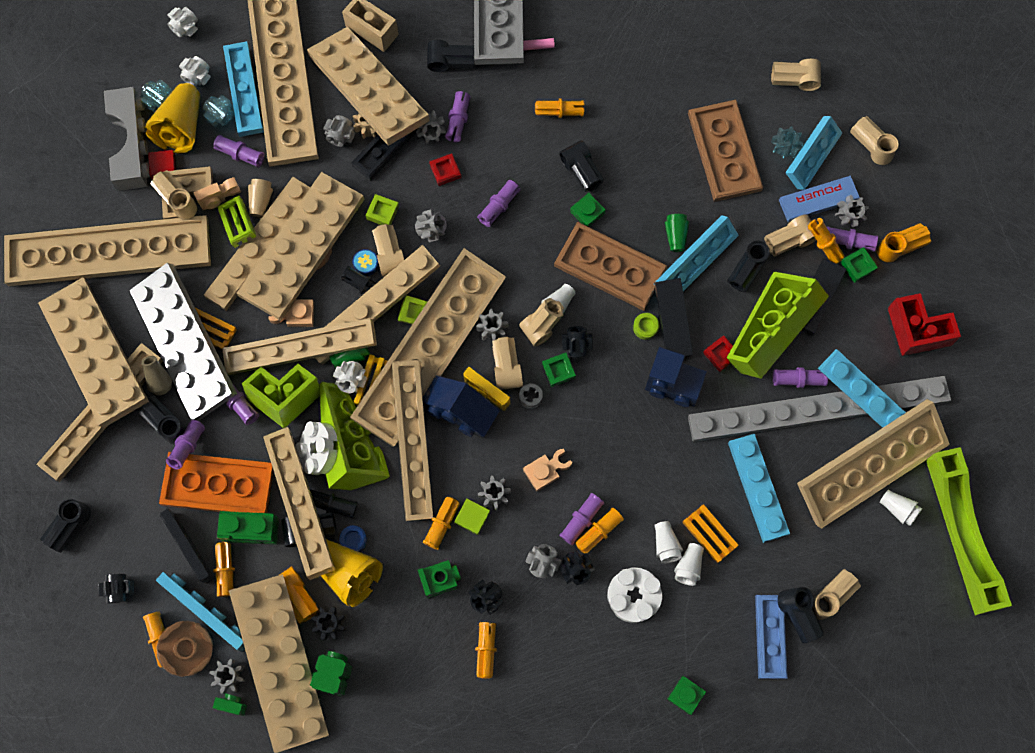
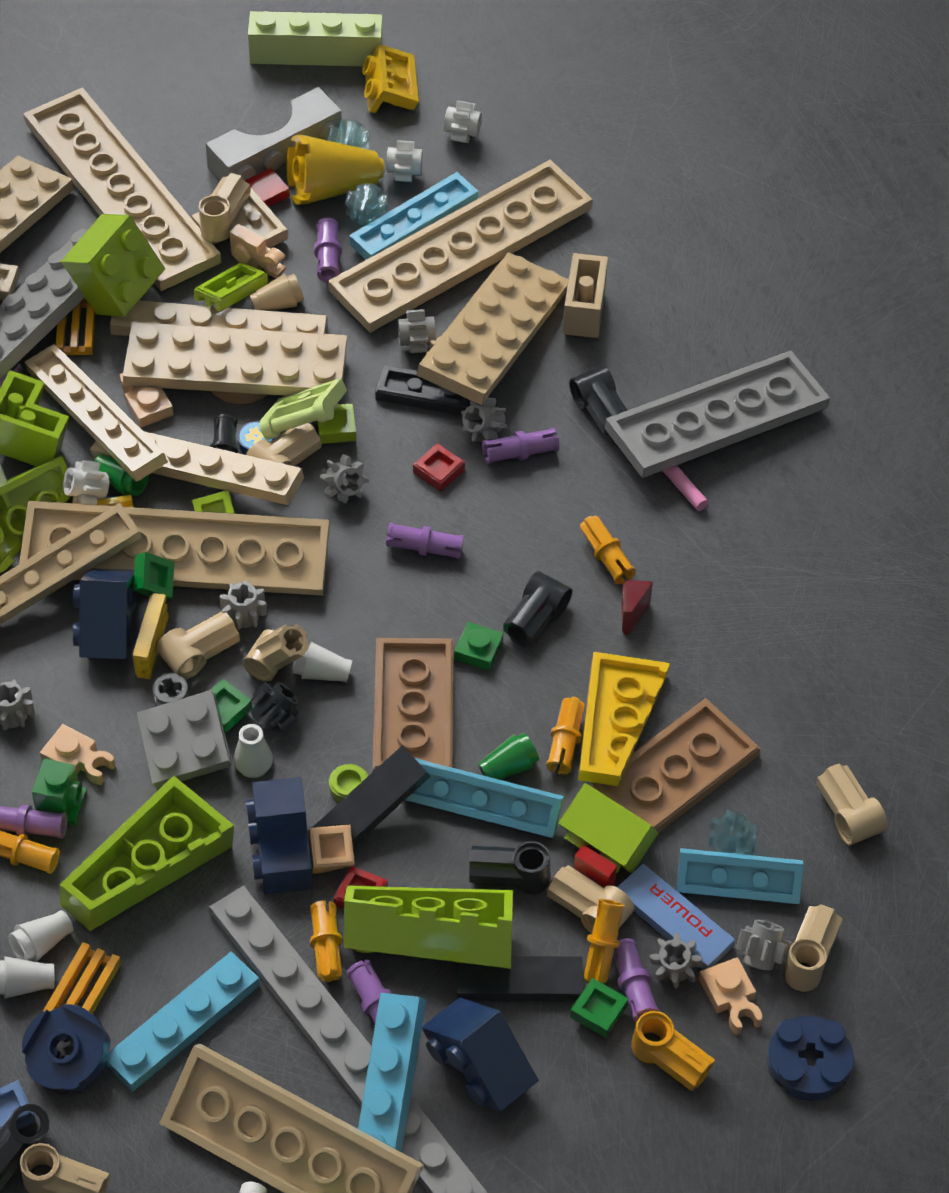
camera: 60 degrees right, 20 degrees down
(53, 73) = (313, 38): none -> yellowish green brick
(116, 47) = (390, 78): none -> yellow bracket
(190, 282) = (113, 265): none -> lime brick
(363, 219) = (302, 408): none -> yellowish green plate
(450, 367) = (153, 575): none -> green plate
(573, 402) = (184, 738): none -> light grey plate
(574, 490) = (59, 790): none -> green brick
(601, 374) = (252, 752): none -> white cone
(607, 114) = (634, 603): none -> dark red slope
(646, 458) = (146, 853): none -> lime wedge
(671, 156) = (616, 711): none -> yellow wing
(676, 194) = (566, 735): none -> light orange axle
(694, 353) = (330, 848): none -> light nougat slope
(738, 554) = (89, 1052): none -> dark blue plate
(747, 386) = (326, 941): none -> light orange axle
(754, 203) = (607, 828): none -> lime brick
(774, 223) = (595, 867): none -> red tile
(864, 163) = (763, 944): none -> light grey gear
(865, 336) = (484, 1049): none -> dark blue brick
(877, 195) = (731, 990): none -> light nougat plate
(916, 330) = (534, 1121): red brick -> none
(938, 163) = (813, 1034): none -> dark blue plate

